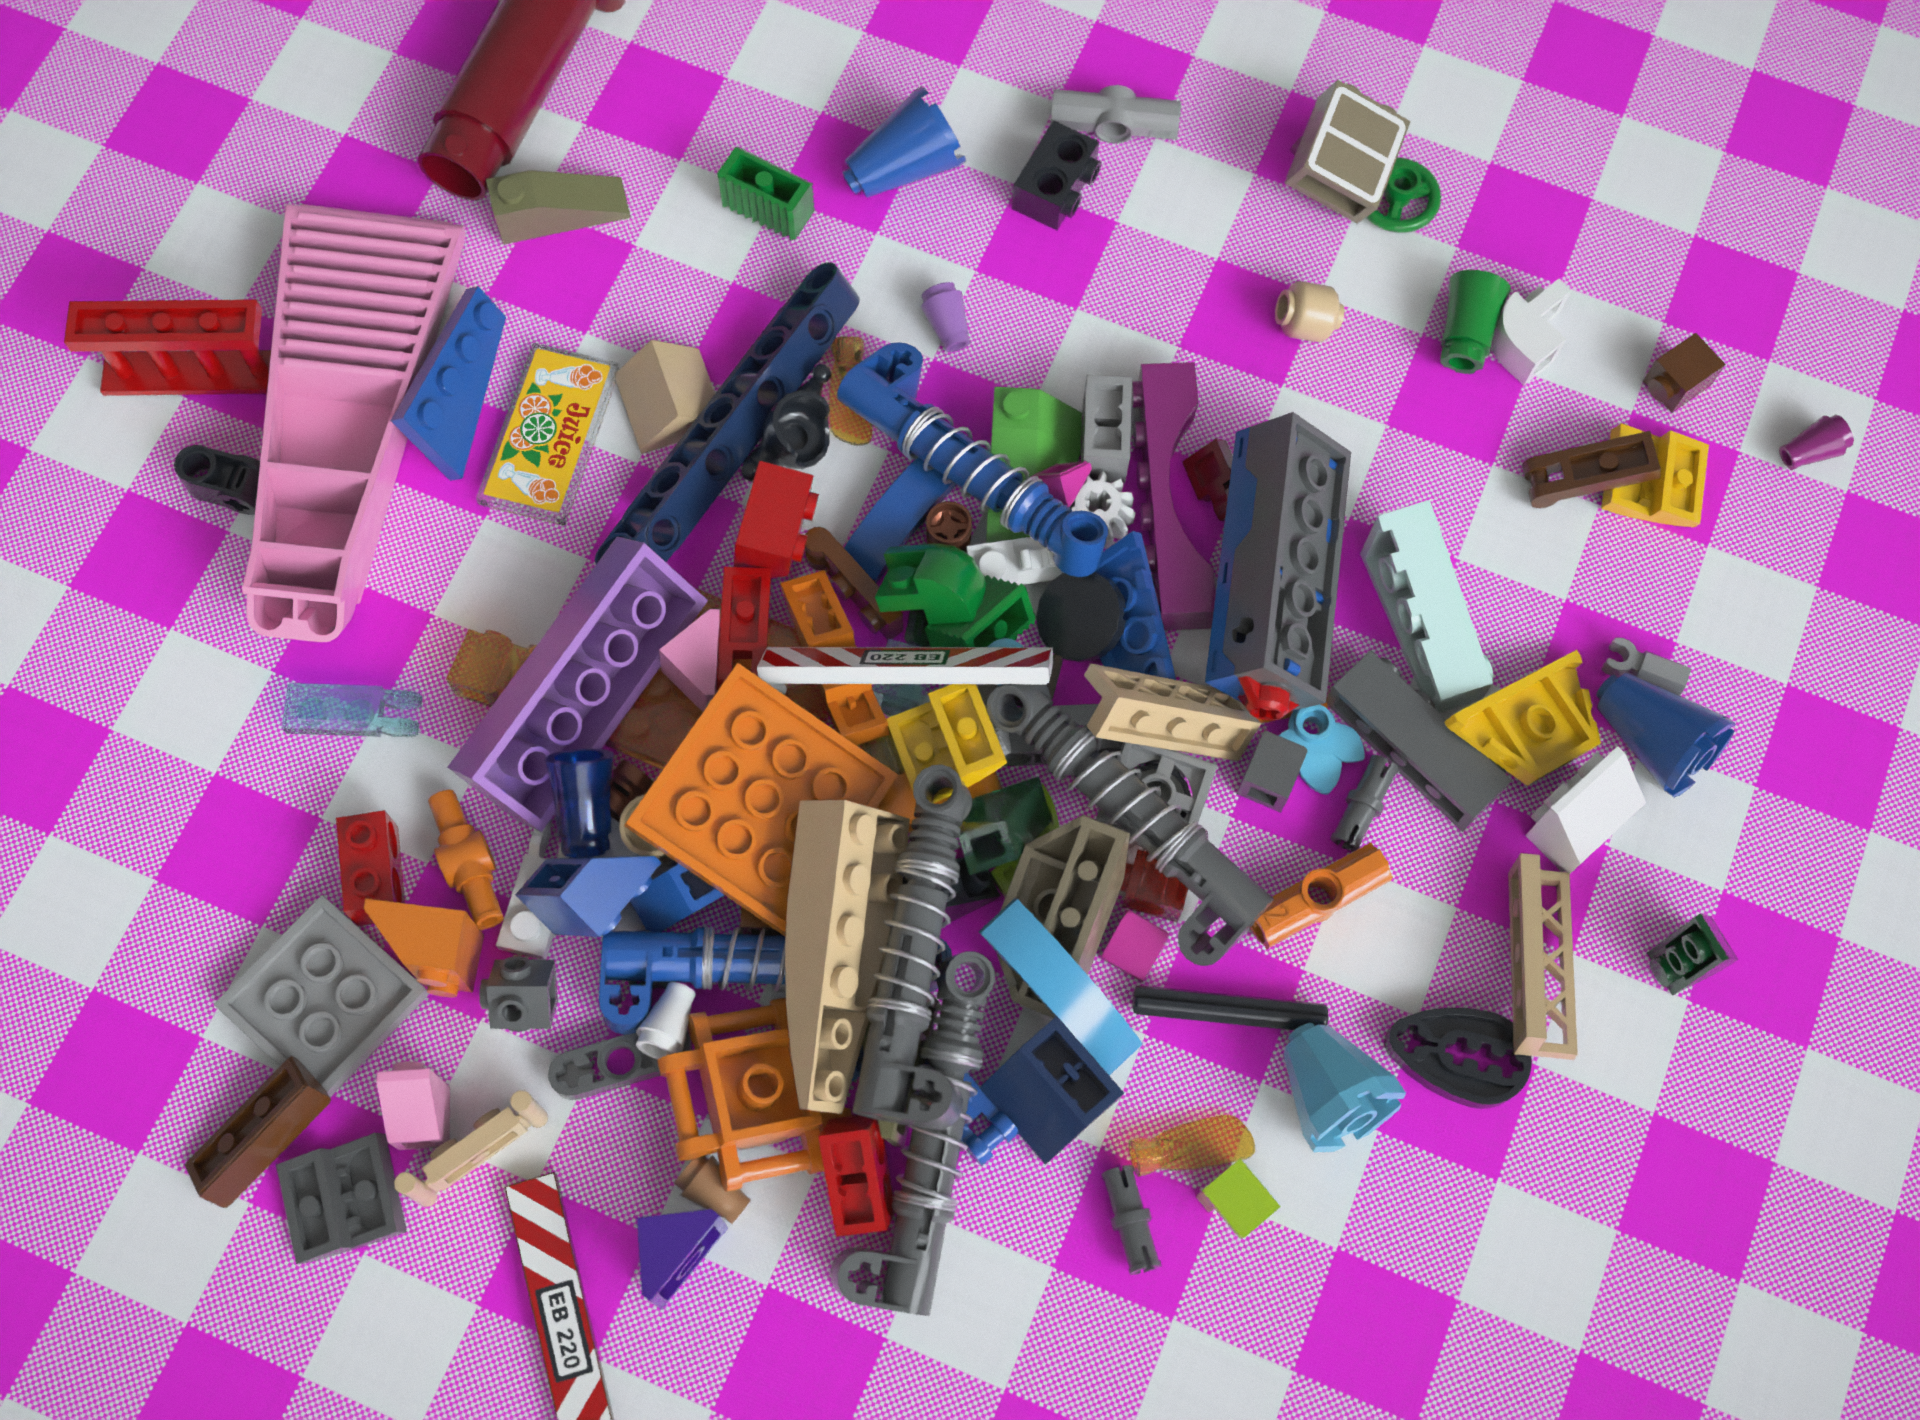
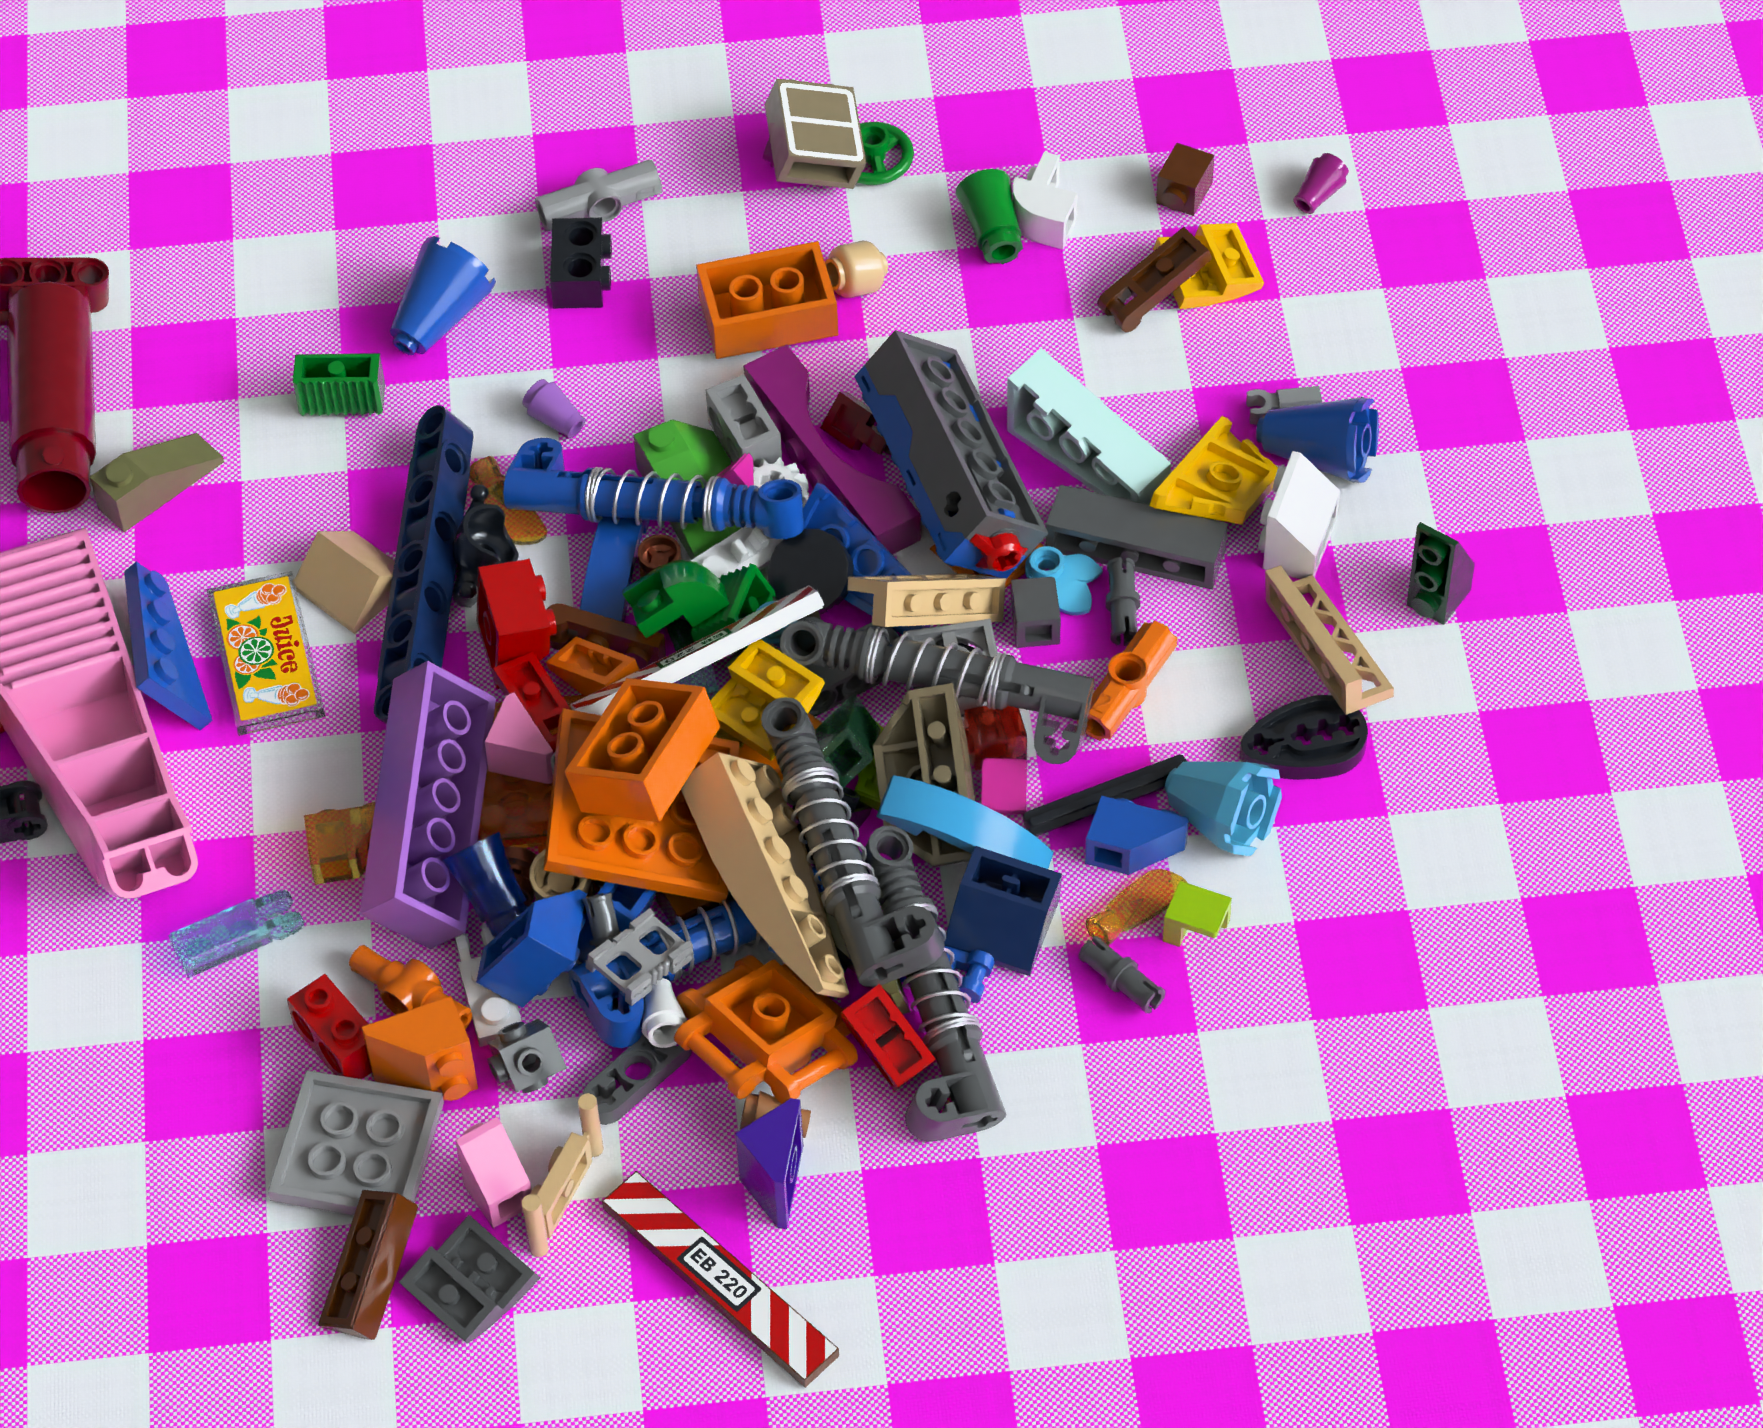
camera: 25 degrees left, 15 degrees down
(658, 913) = (601, 918): none -> dark grey pin
(673, 976) = (652, 966): none -> light grey piece
(775, 757) = (642, 749): none -> orange brick
(1205, 303) = (767, 300): none -> orange brick
(1226, 1072) = (1133, 836): none -> blue slope

